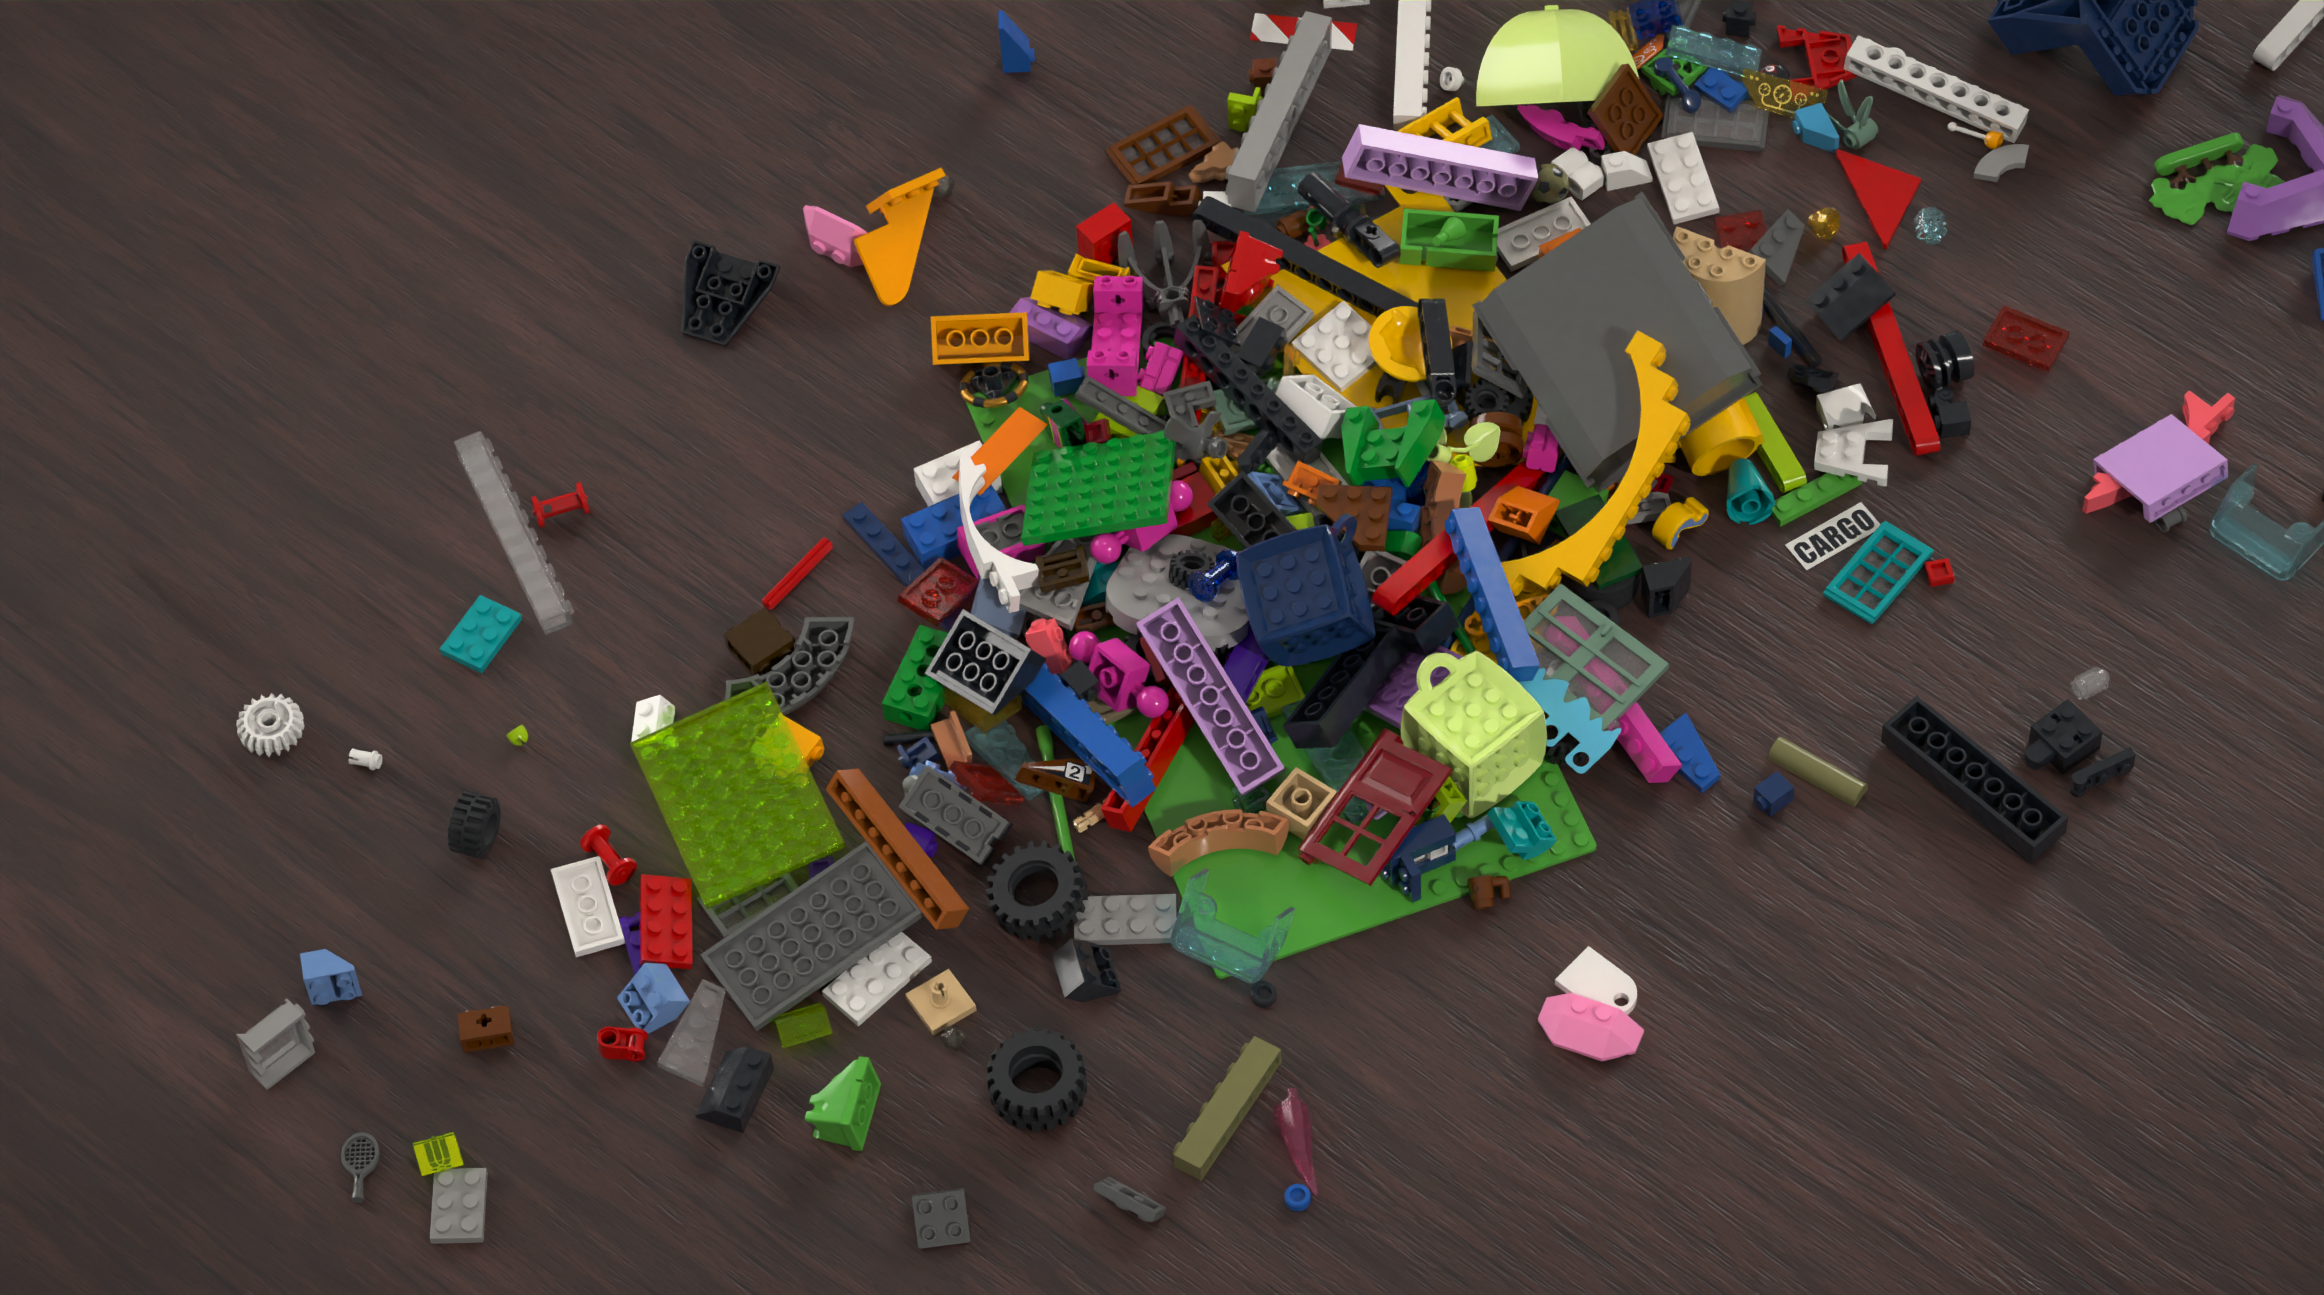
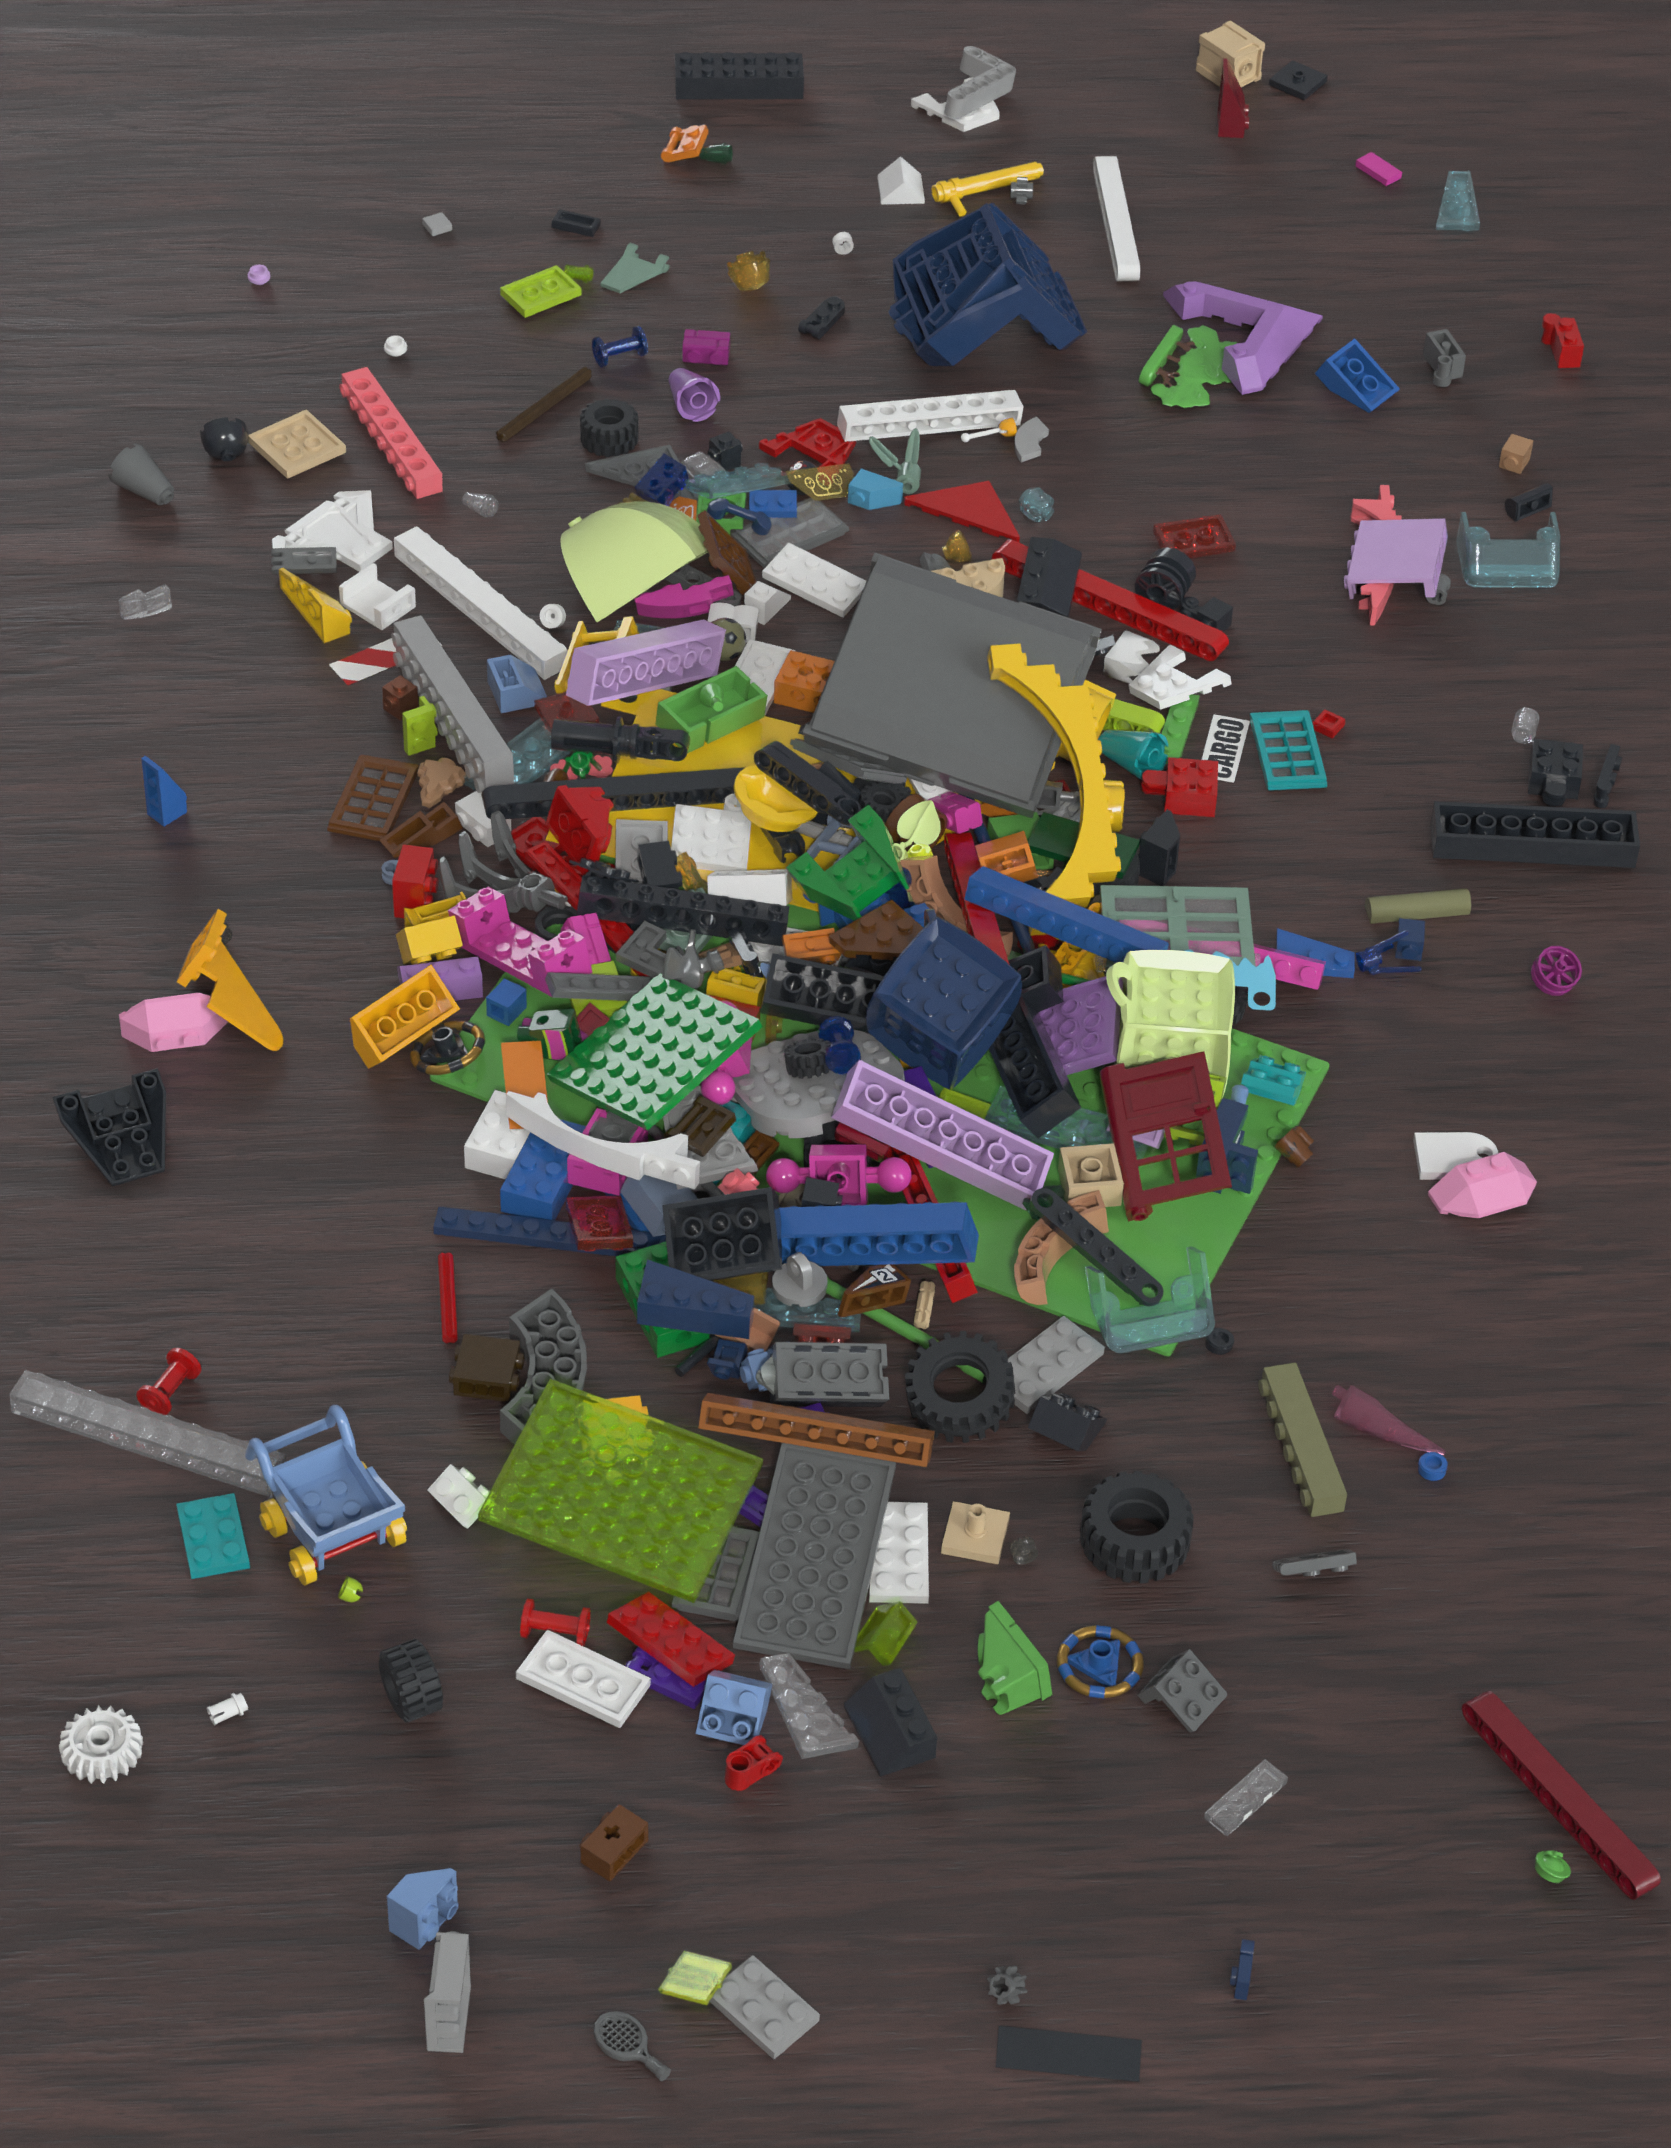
camera: 50 degrees left, 10 degrees down
(552, 659) = (326, 1497): none -> medium blue piece
(913, 693) = (692, 1303): none -> dark blue wedge
(916, 1153) = (1099, 1661): none -> blue piece
(1022, 735) = (799, 1282): none -> light grey tile
(1238, 860) = (1096, 1247): none -> black plate
(1355, 109) = (513, 683): none -> medium blue slope
(1710, 19) = (701, 464): none -> clear slope
(1726, 787) = (1371, 957): none -> clear blue plant
(1754, 548) = (1187, 786): none -> red brick
(1850, 900) = (1566, 962): none -> magenta wheel

